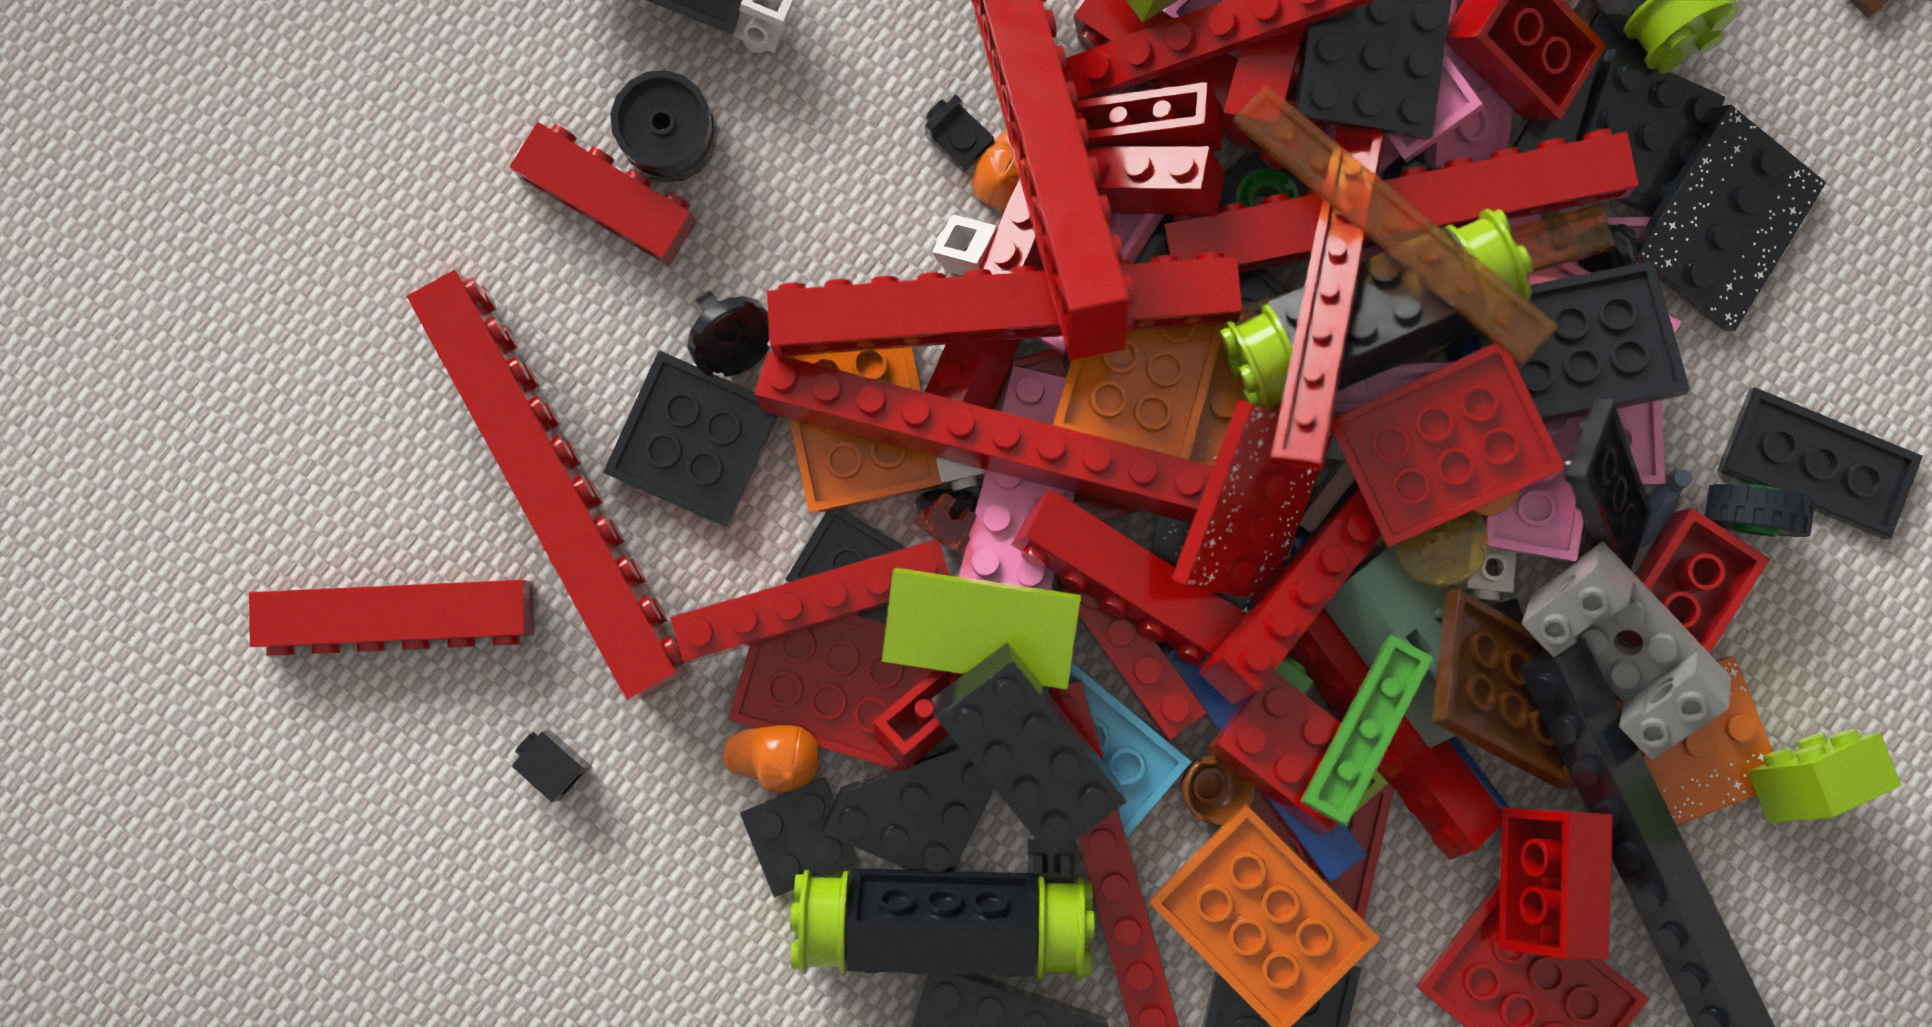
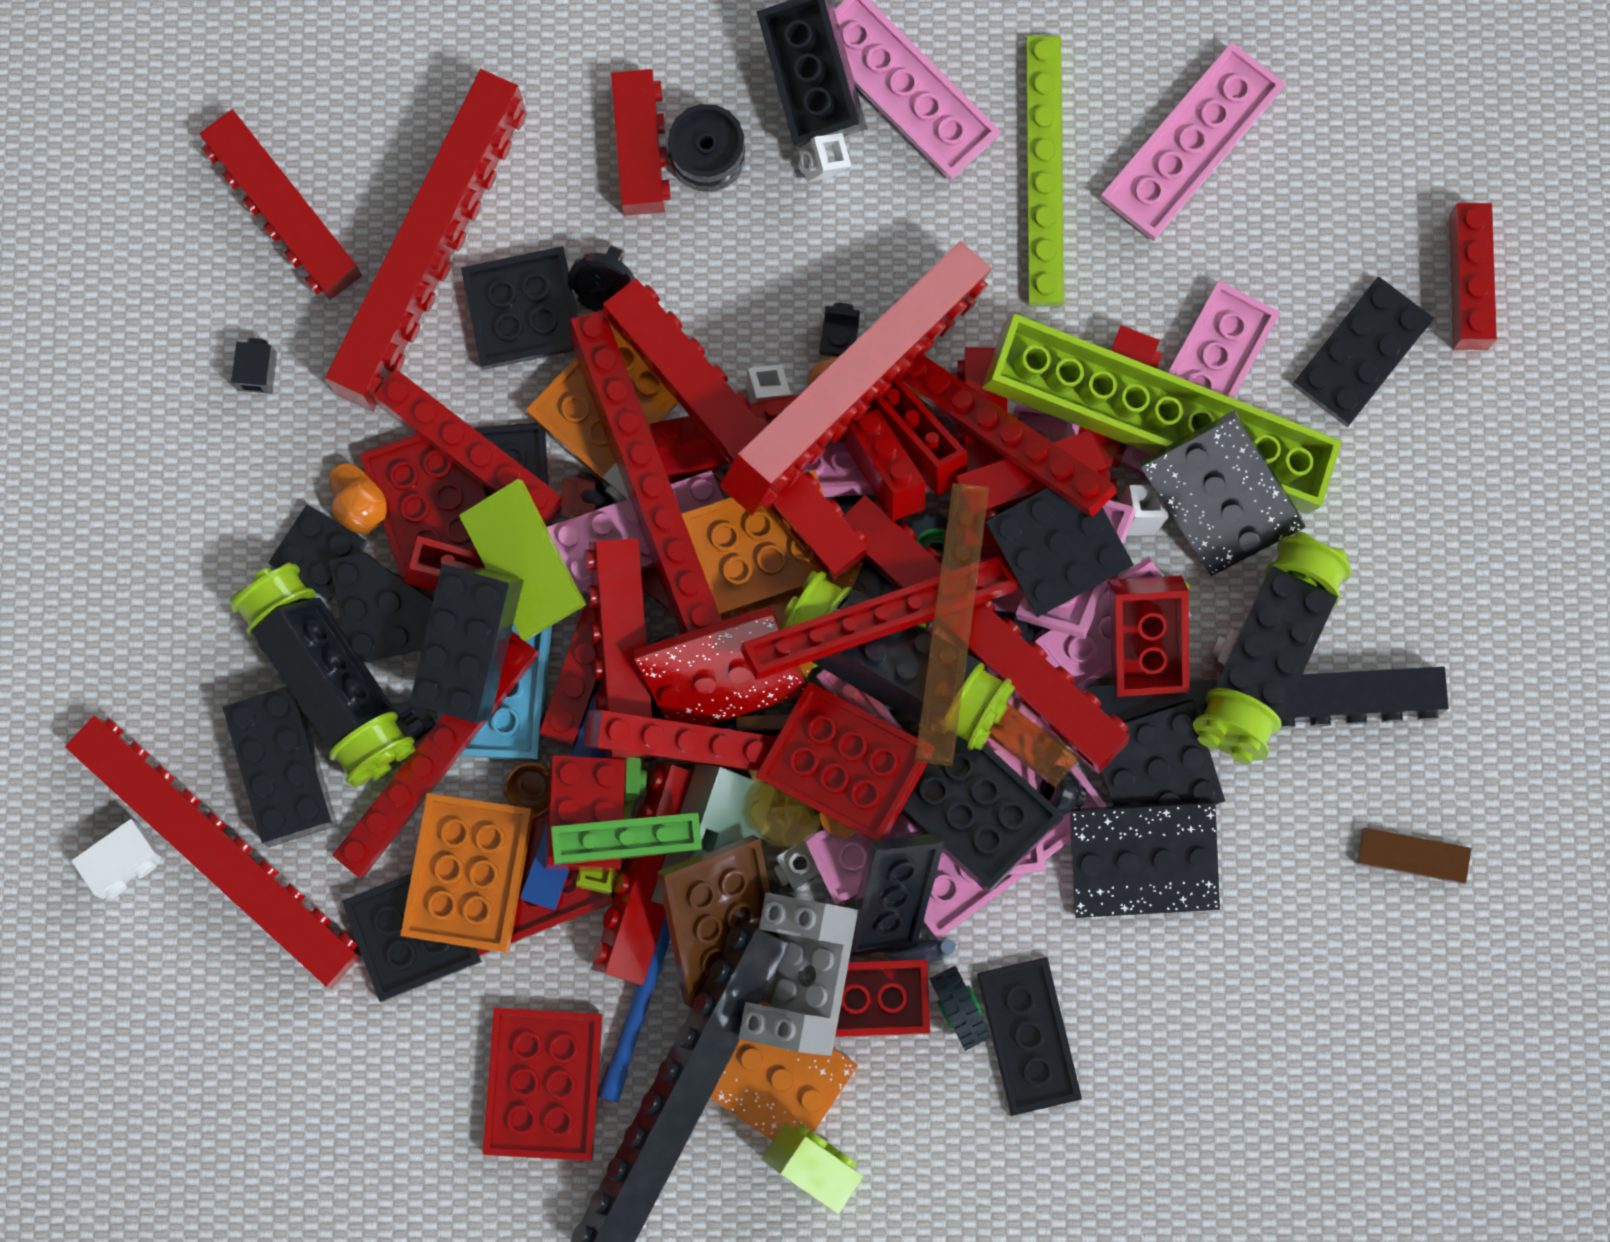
camera: 55 degrees right, 5 degrees down
(1555, 883) = (618, 1035): red brick -> none

